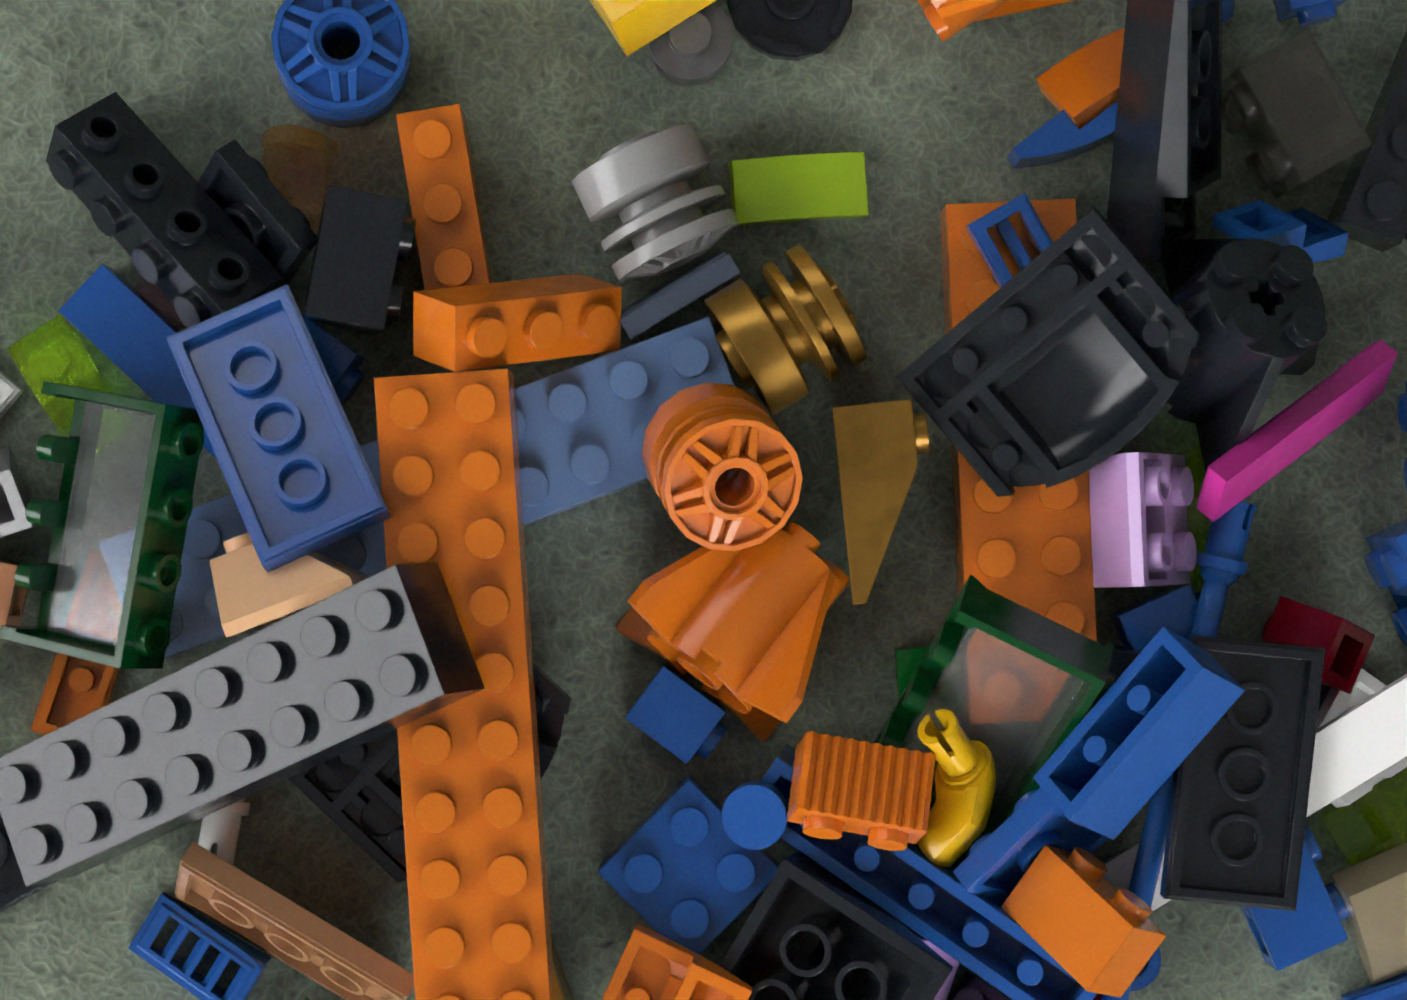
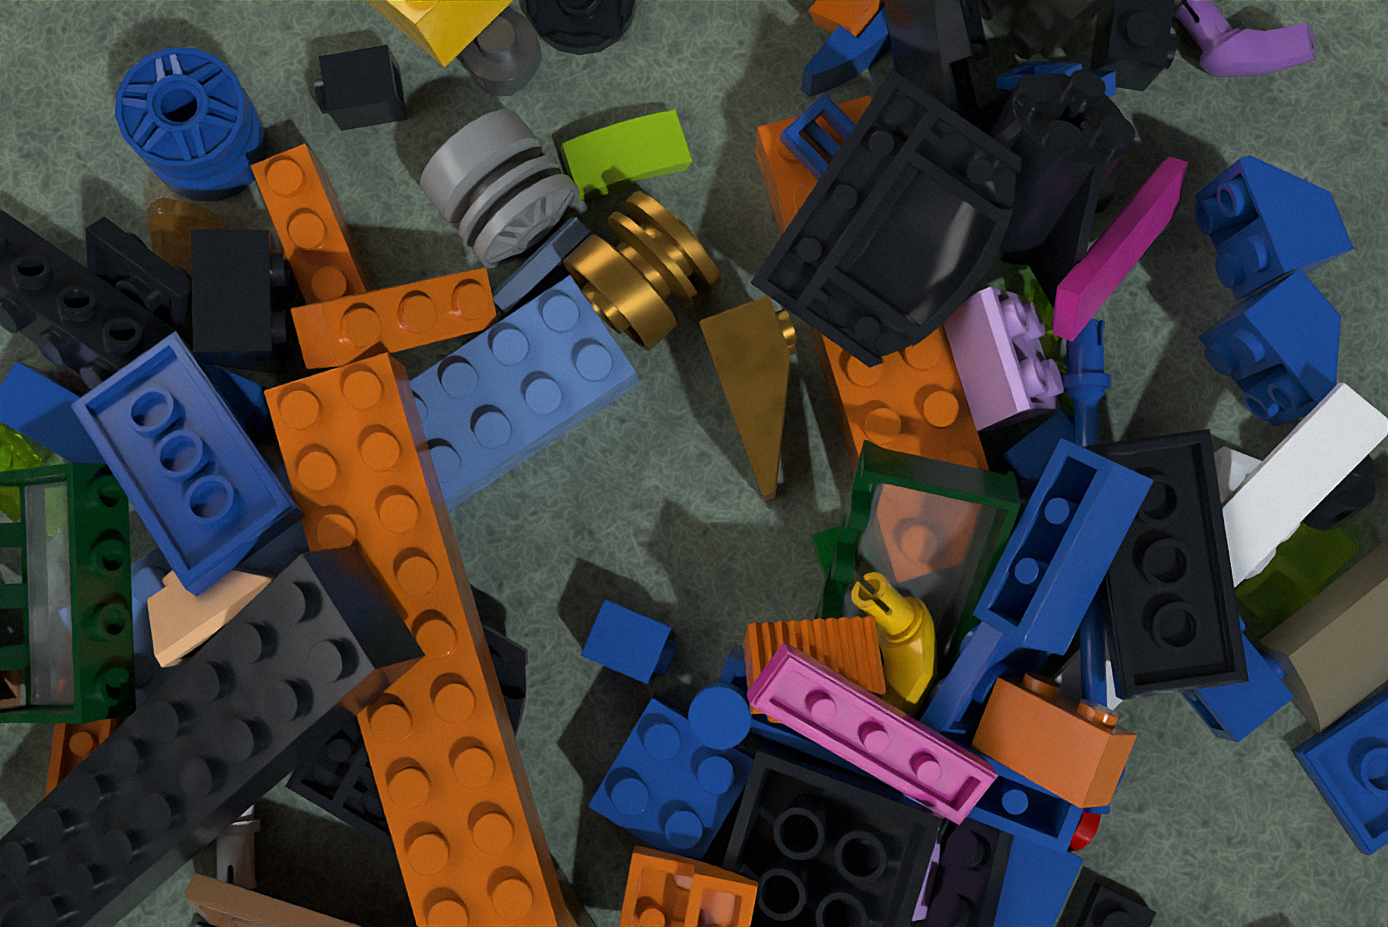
camera: 10 degrees left, 5 degrees down
(527, 46) = (361, 88): none -> black brick
(721, 467) = (637, 419): orange wheel -> none
(741, 622) = (661, 534): orange brick -> none
(902, 870) = (870, 733): none -> dark pink tile
(1343, 641) = (1180, 417): dark red brick -> none

